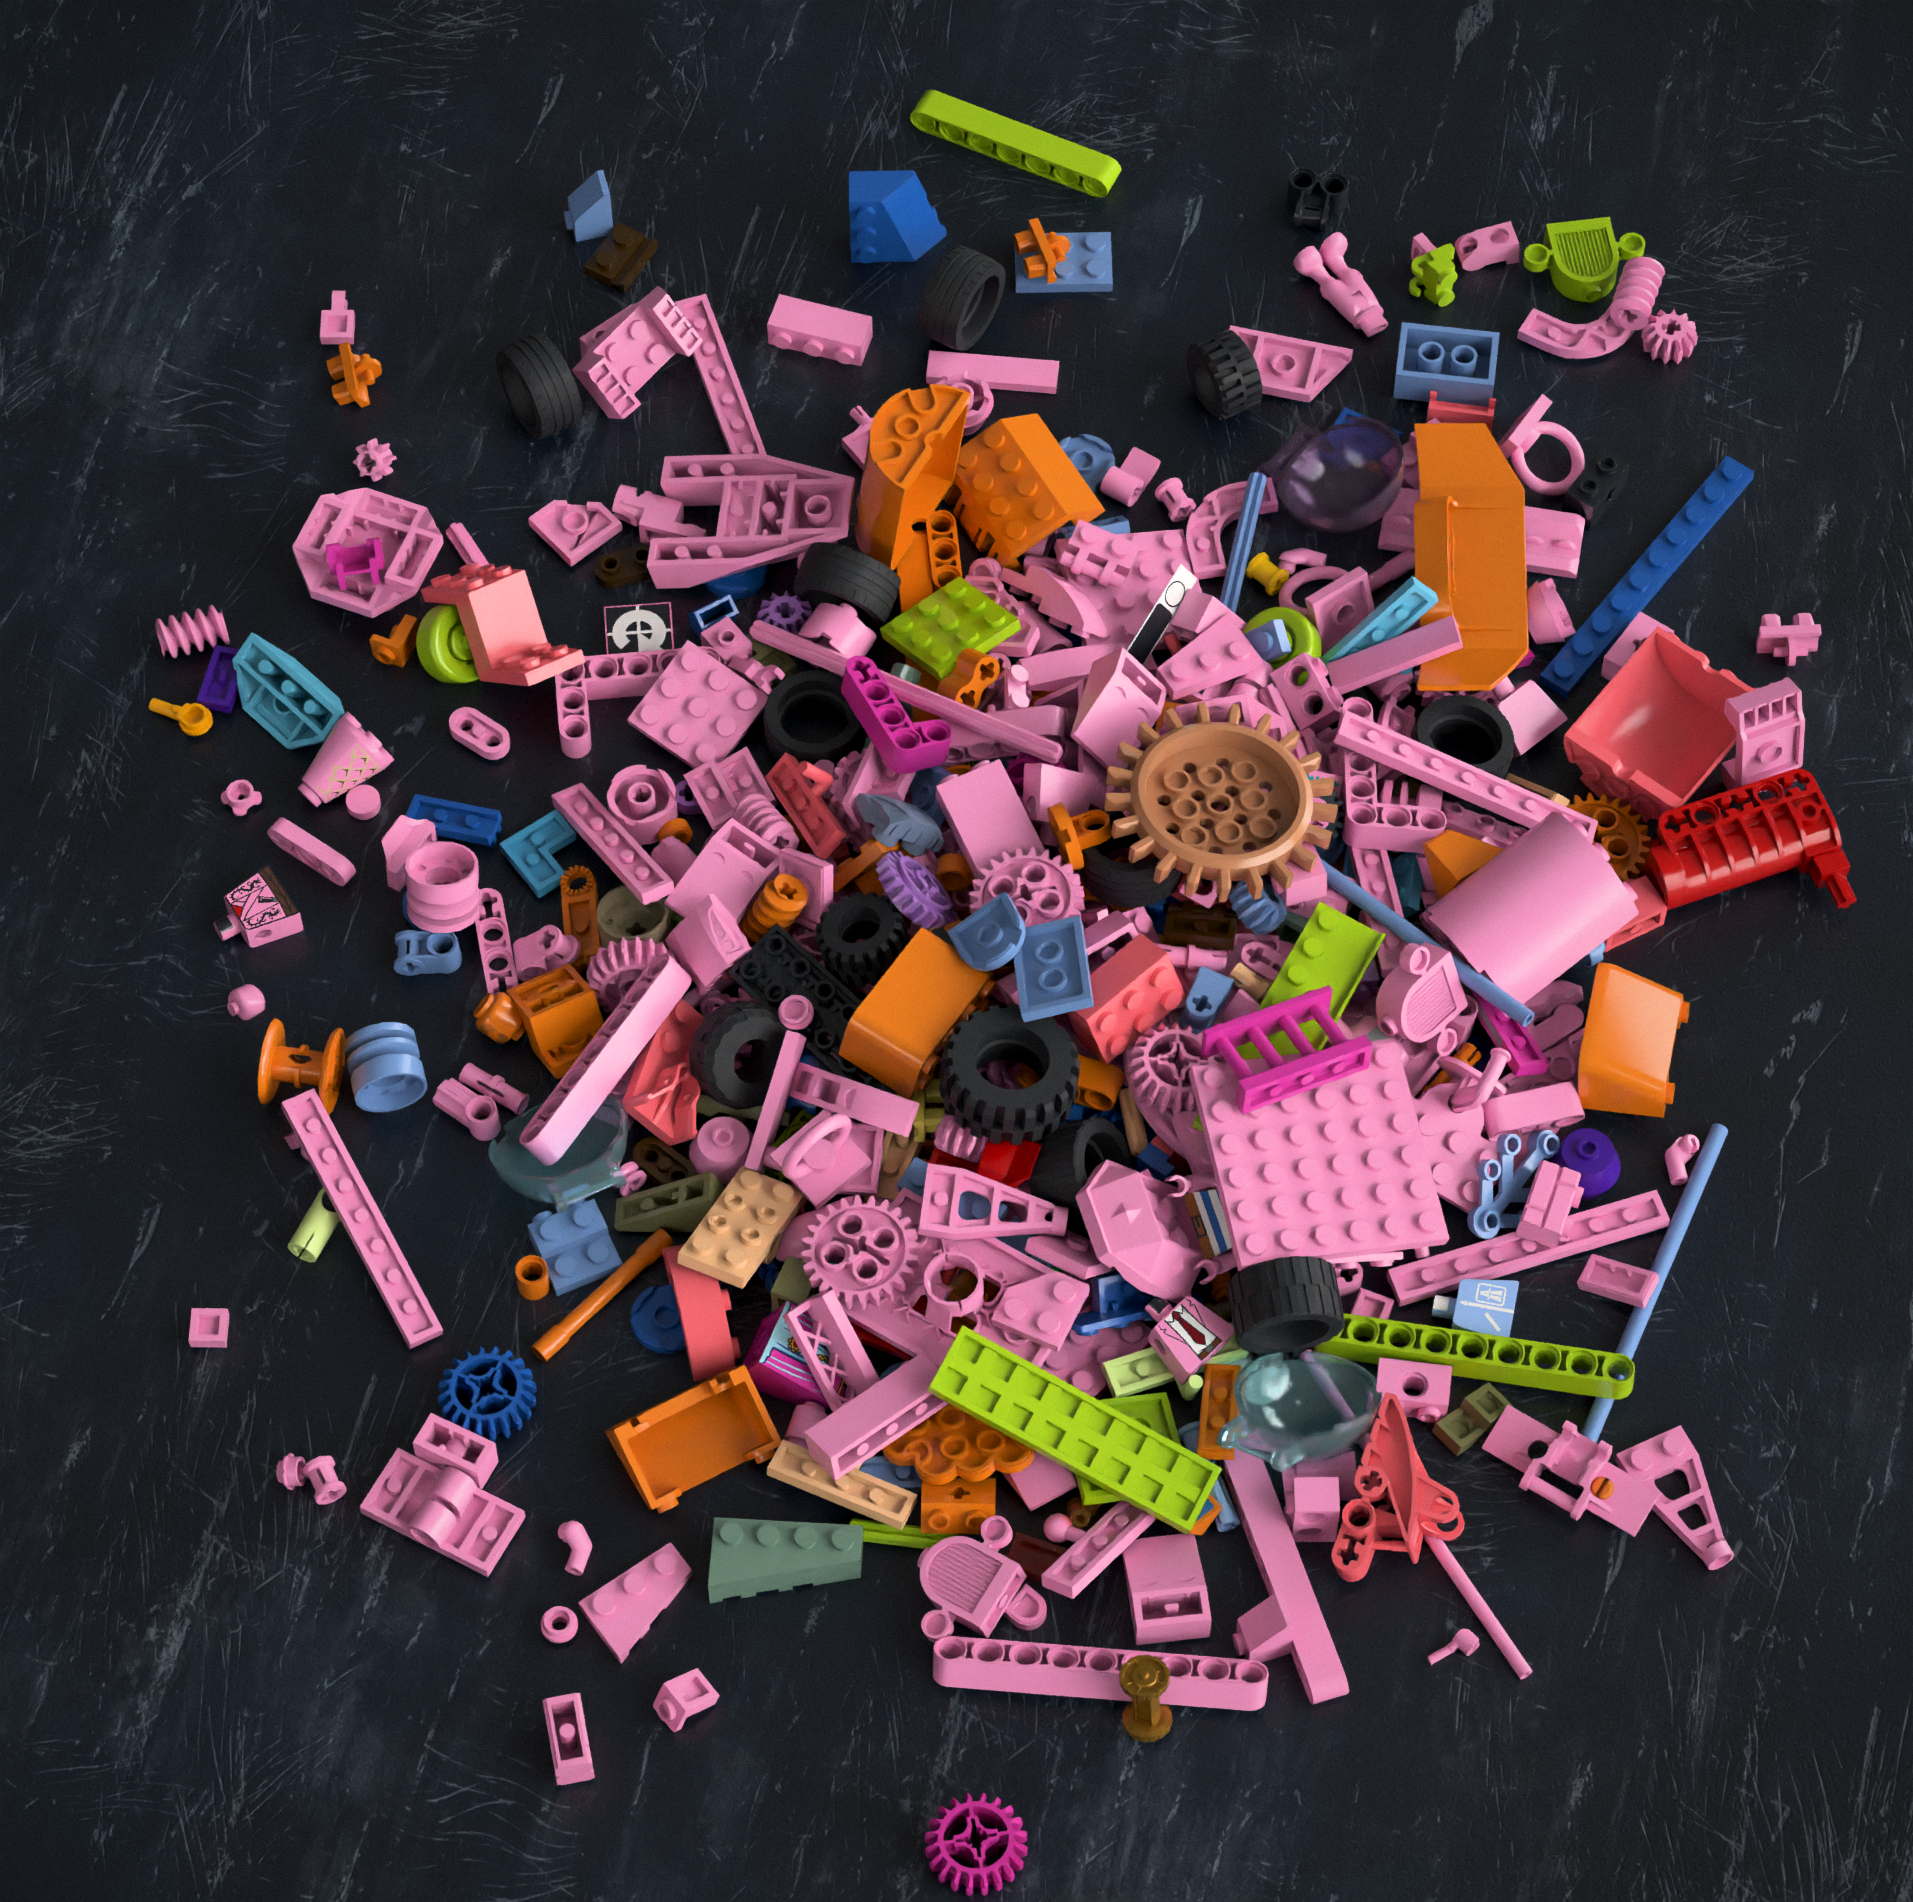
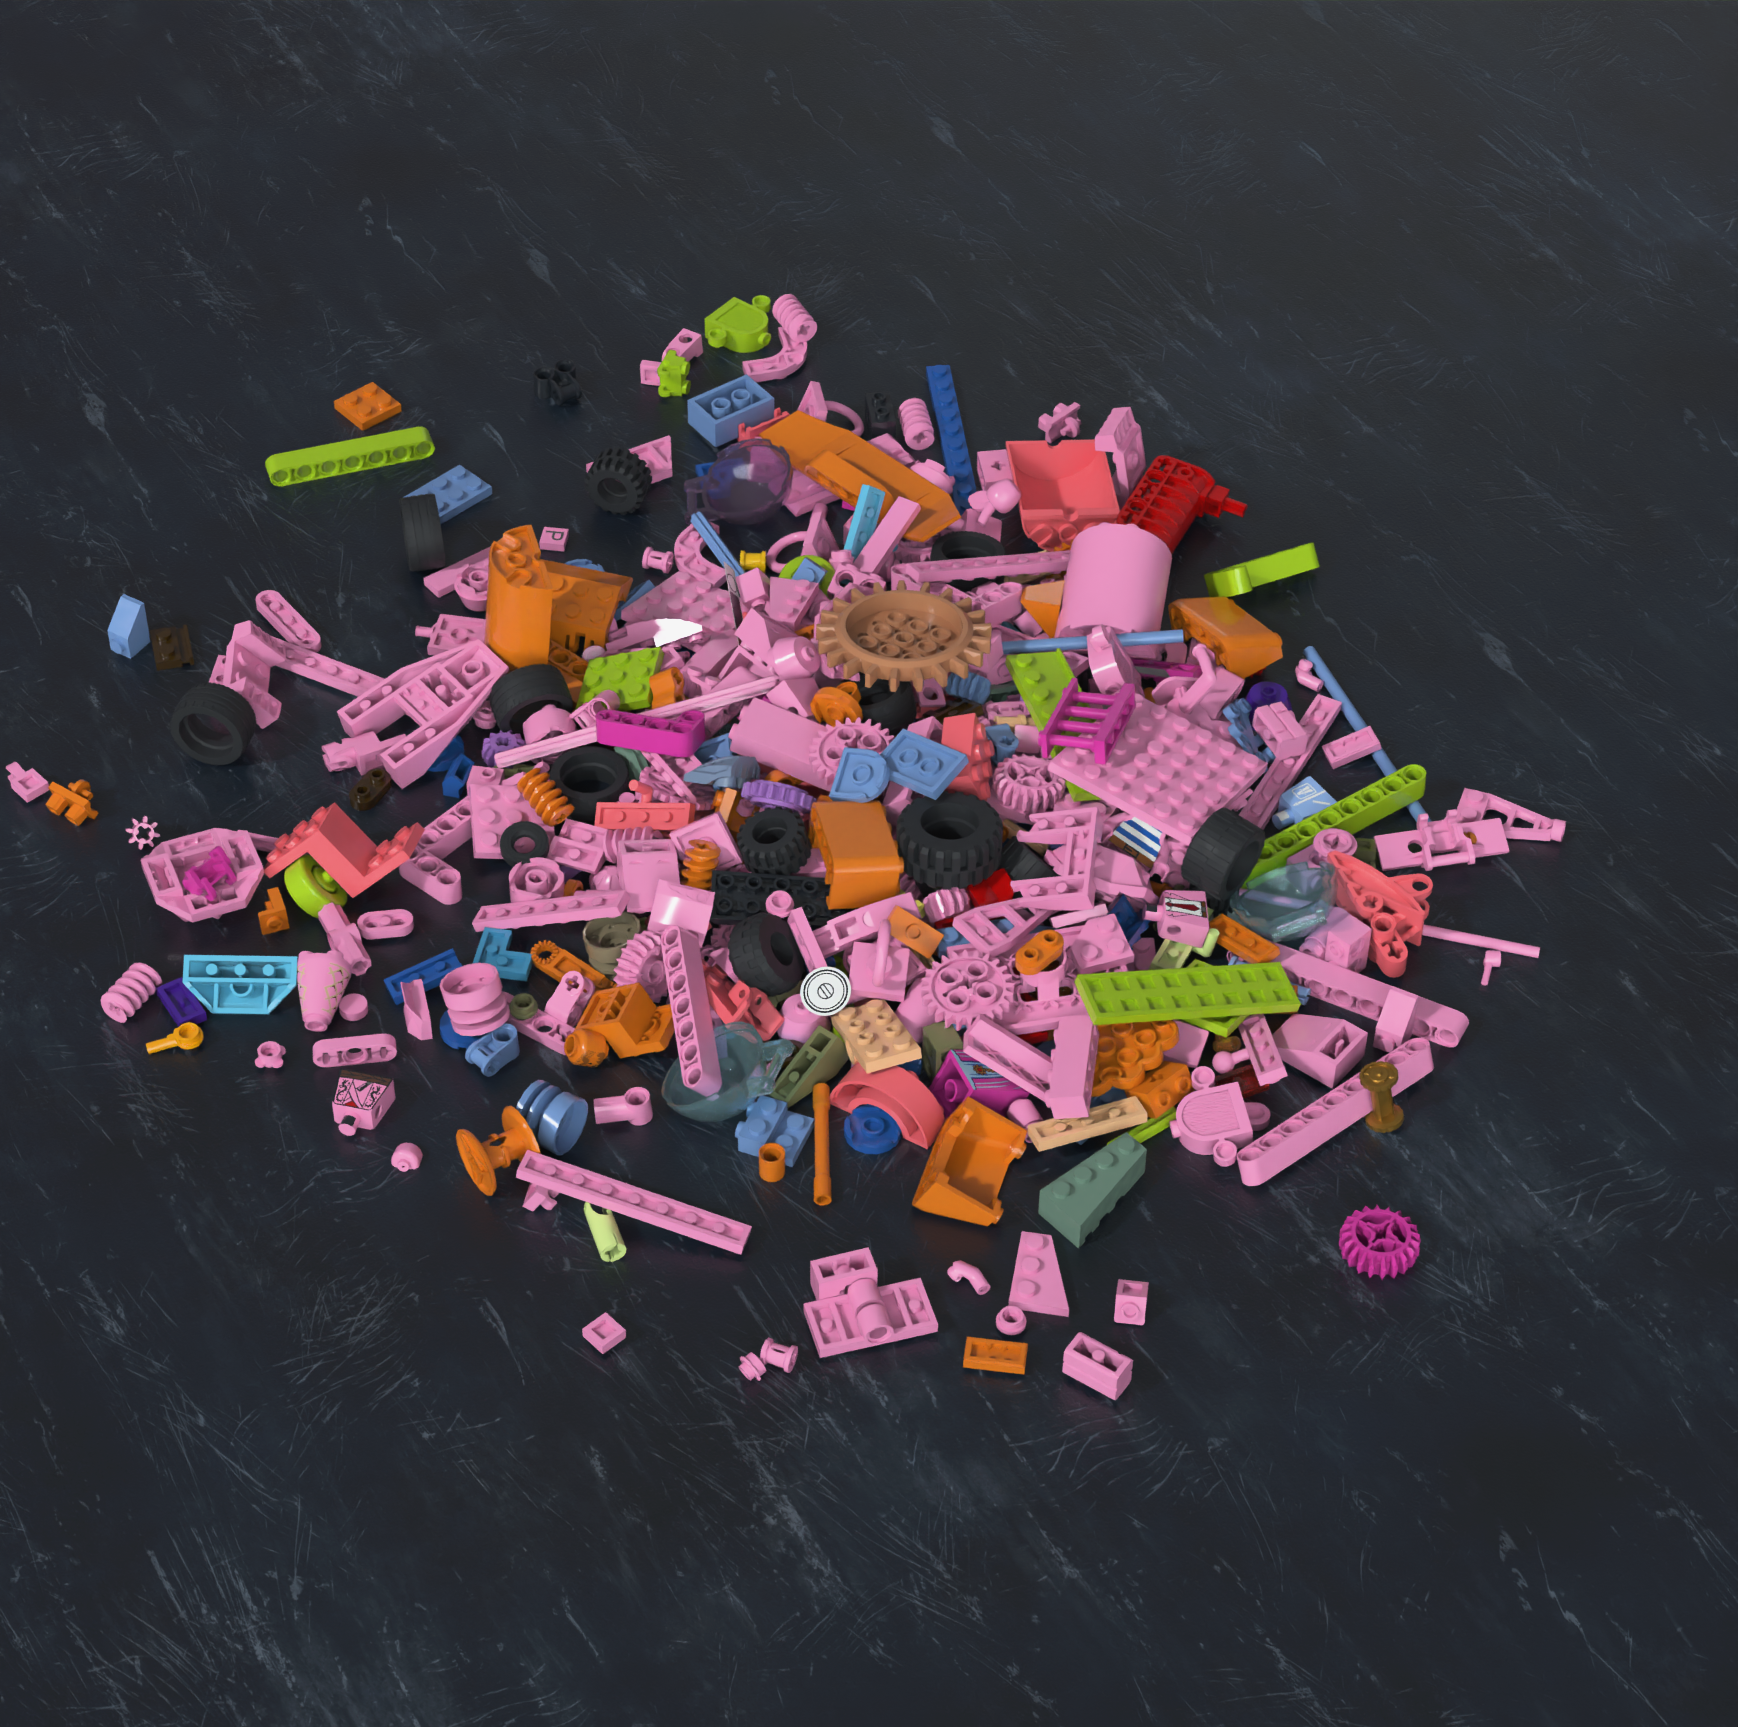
camera: 45 degrees left, 15 degrees down
(426, 721) = (344, 937): none -> bright pink piece
(492, 919) = (523, 1006): none -> olive plate
(493, 1370) = (818, 1234): blue gear -> none
(494, 1088) = (605, 1090): bright pink pin -> none
(505, 1646) = (995, 1355): none -> orange plate
(574, 529) = (315, 789): bright pink plate -> none
(638, 628) = (419, 807): tile -> none
(668, 728) = (520, 830): none -> black tyre
(735, 710) = (544, 797): none -> orange piece
(749, 1140) = (825, 991): none -> white sticker
(750, 309) = (287, 620): none -> bright pink plate
(819, 330) = (345, 606): bright pink brick -> none
(881, 1145) = (914, 932): none -> orange plate
(889, 645) = (586, 713): none -> bright pink piece
(890, 217) = (324, 523): blue wedge -> none
(947, 1274) = (1041, 951): none -> orange plate
(1045, 250) = (441, 486): orange hips -> none
(1063, 1228) = (1075, 889): none -> bright pink wedge
(1093, 741) = (793, 658): none -> bright pink cone
(1103, 89) = (367, 406): none -> orange plate
(1103, 549) = (658, 599): bright pink plate -> none
(1107, 394) = (554, 539): none -> bright pink tile
(1132, 478) = (617, 562): bright pink panel -> none
(1301, 556) = (762, 543): bright pink arm -> none
(1328, 645) = (841, 557): none -> bright pink plate
(1347, 294) = (625, 412): bright pink piece -> none
(1443, 1370) = (1327, 838): none -> bright pink gear
(1563, 694) = (1000, 496): none -> bright pink piece
(1625, 524) = (916, 424): none -> bright pink piece
(1669, 336) = (831, 333): bright pink gear -> none
(1771, 991) = (1244, 576): none -> lime beam

